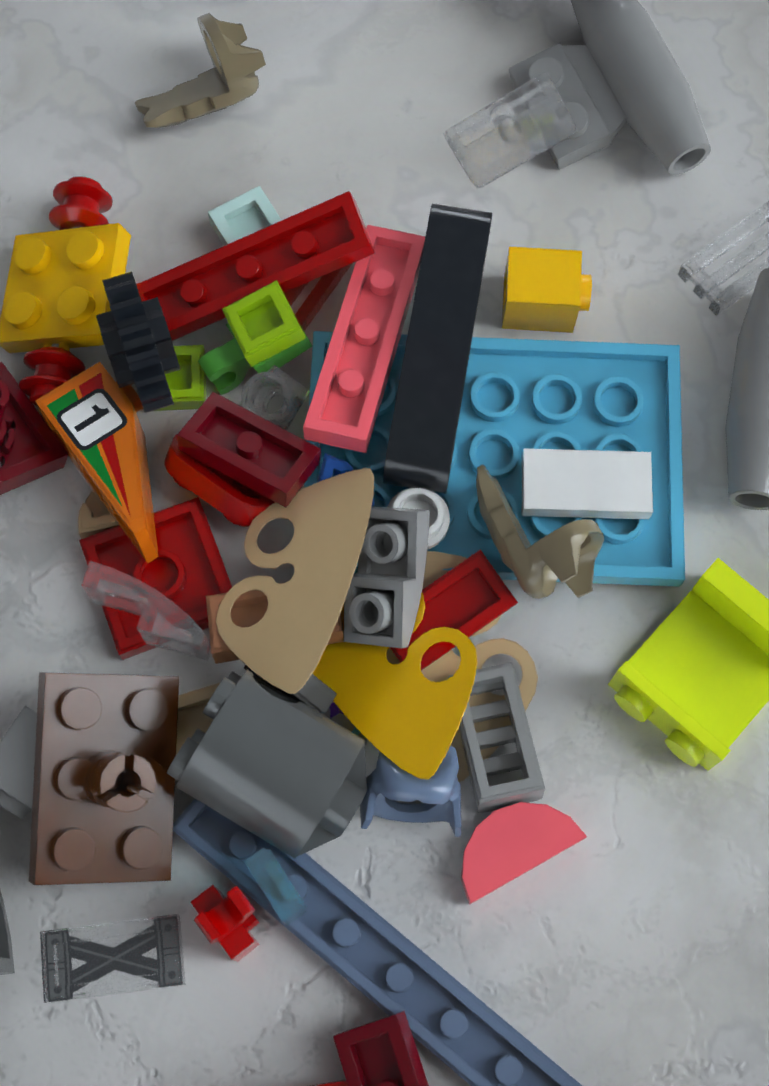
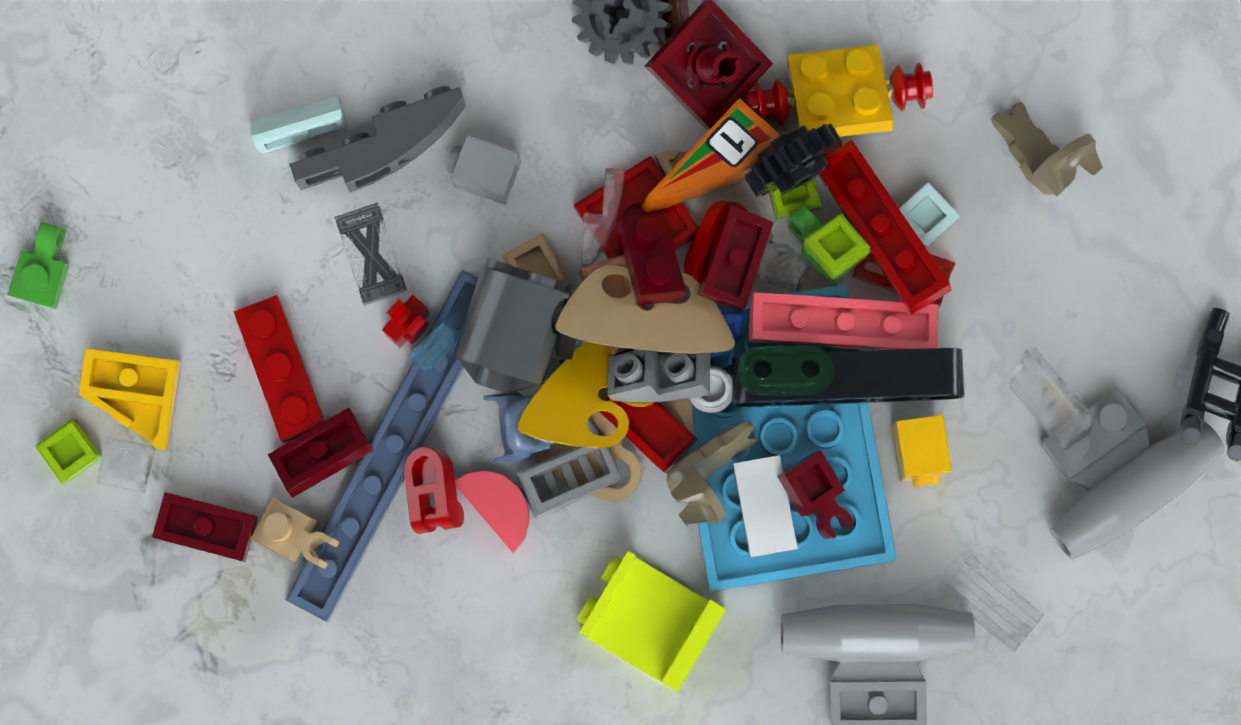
camera: 80 degrees right, 10 degrees up
(103, 778) = (481, 216): reddish brown plate -> none
(222, 556) = (651, 258): none -> dark red plate
(419, 401) = (786, 372): none -> clear green plate
(455, 927) = (429, 473): none -> red plate
(578, 417) = (812, 489): none -> dark red plate

